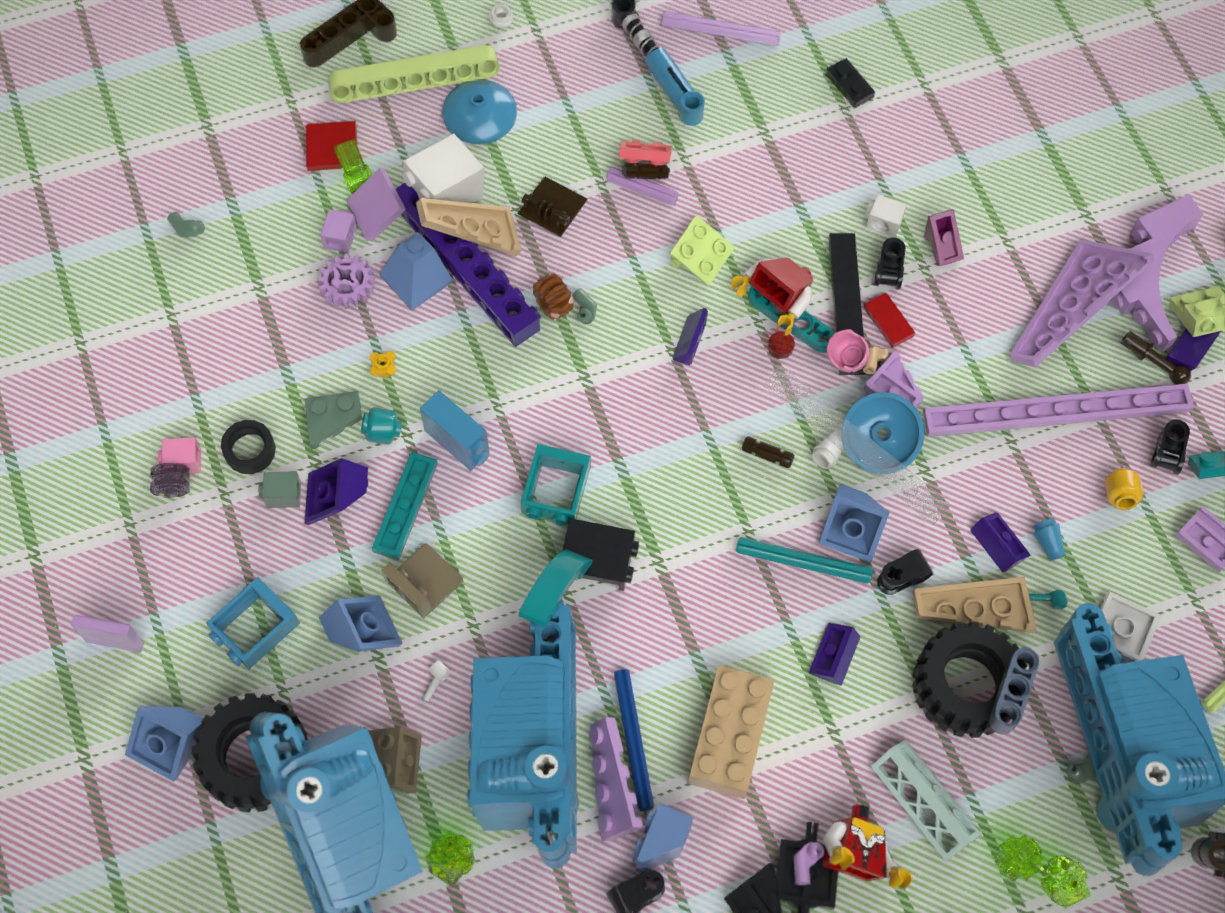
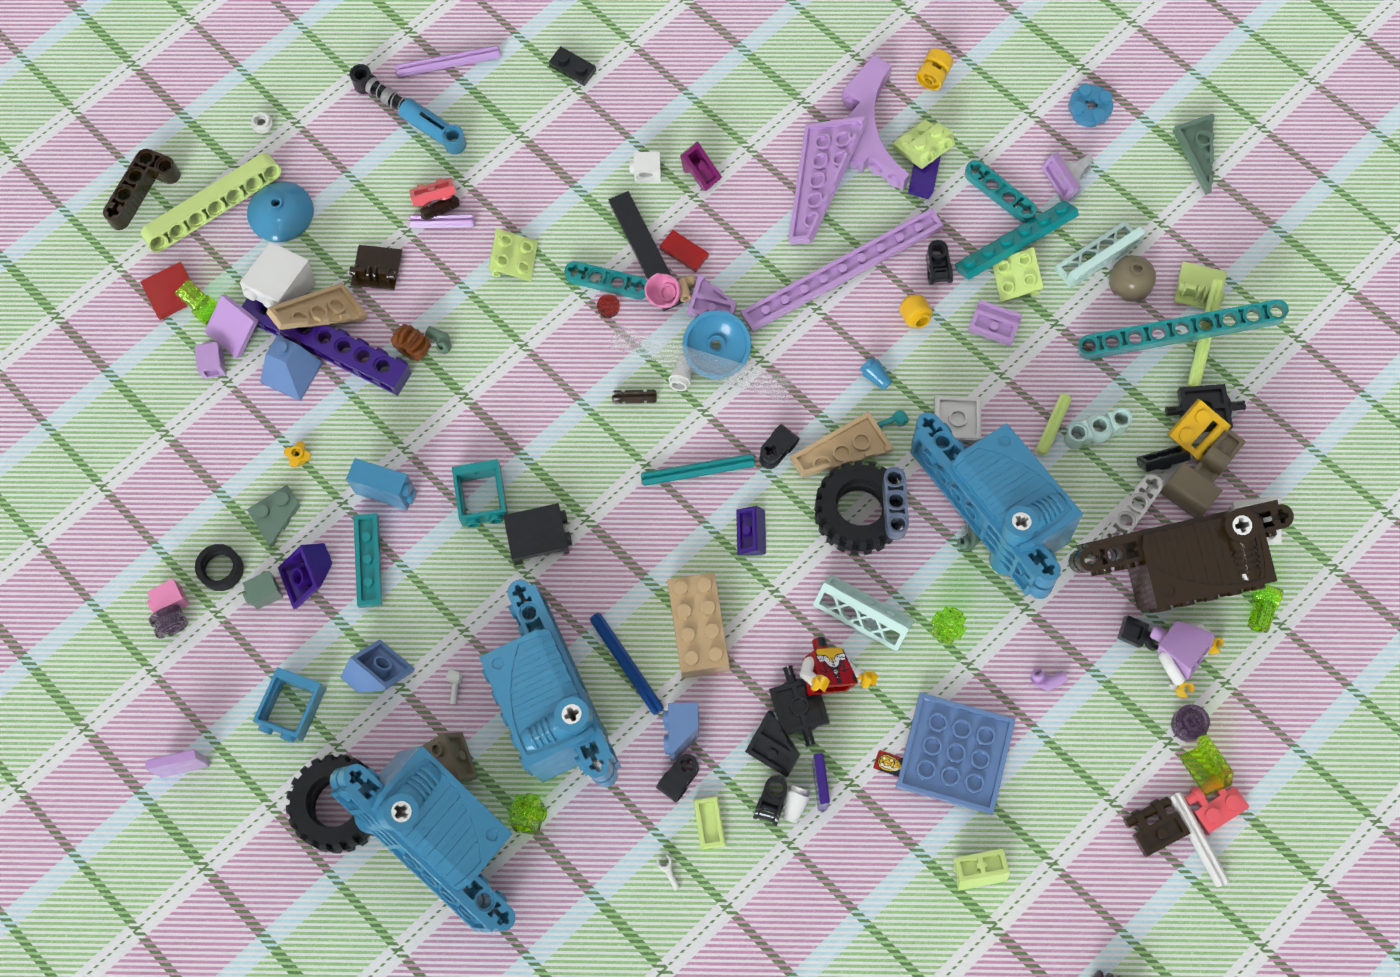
camera: 20 degrees left, 5 degrees up
(163, 738) = (261, 824): medium blue slope -> none
(185, 228) = (79, 410): sand green arm -> none
(346, 281) = (237, 391): lavender gear -> none
(381, 426) = (319, 505): teal head -> none
(423, 580) = (409, 612): dark tan bracket -> none
(552, 585) = (514, 574): teal slope -> none
(611, 790) = (626, 708): lavender wing -> none
(691, 337) = (534, 329): slope -> none
(782, 284) = (589, 257): red torso -> none
(804, 860) = (793, 696): lavender arm -> none
(854, 523) = (724, 425): medium blue slope -> none
(889, 267) = (667, 208): black piece -> none
(999, 542) = (839, 391): dark purple slope -> none
(1064, 881) = (987, 627): clear neon green brick -> none
(1178, 373) = (922, 201): dark brown pin -> none

